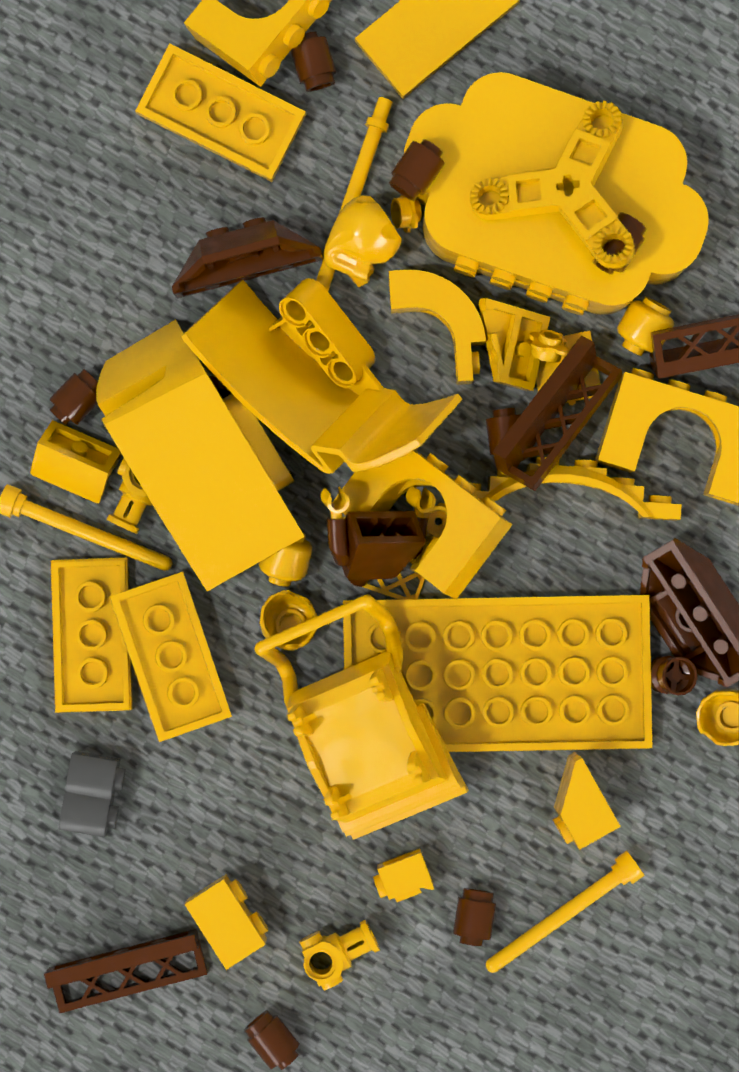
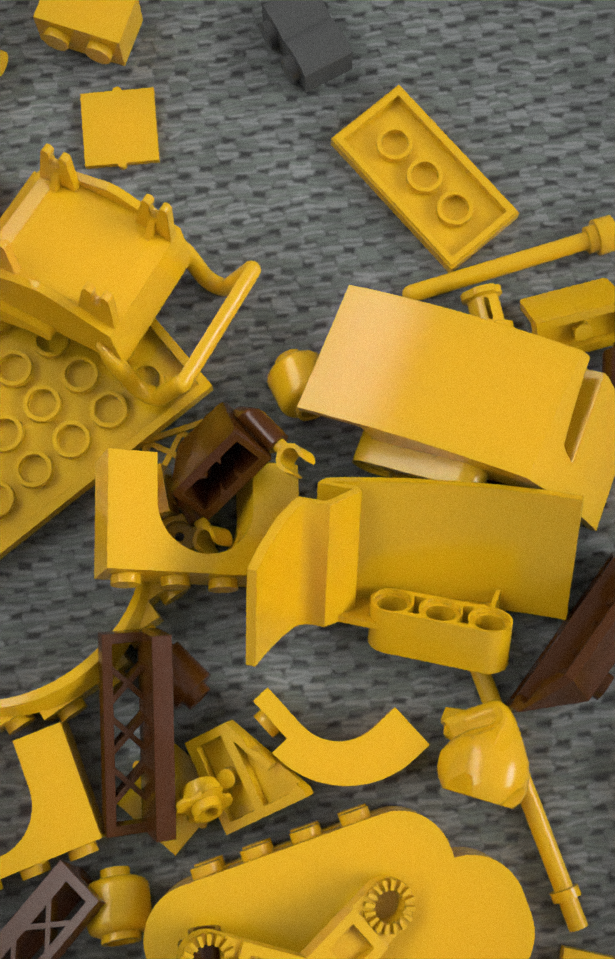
camera: 140 degrees right, 10 degrees down
(170, 656) = (335, 208): yellow plate -> none
(263, 832) = (119, 128): none -> yellow piece
(283, 612) = (255, 328): yellow hair -> none
(405, 213) = (461, 824): yellow plate -> none
(416, 169) = (490, 872): reddish brown brick -> none

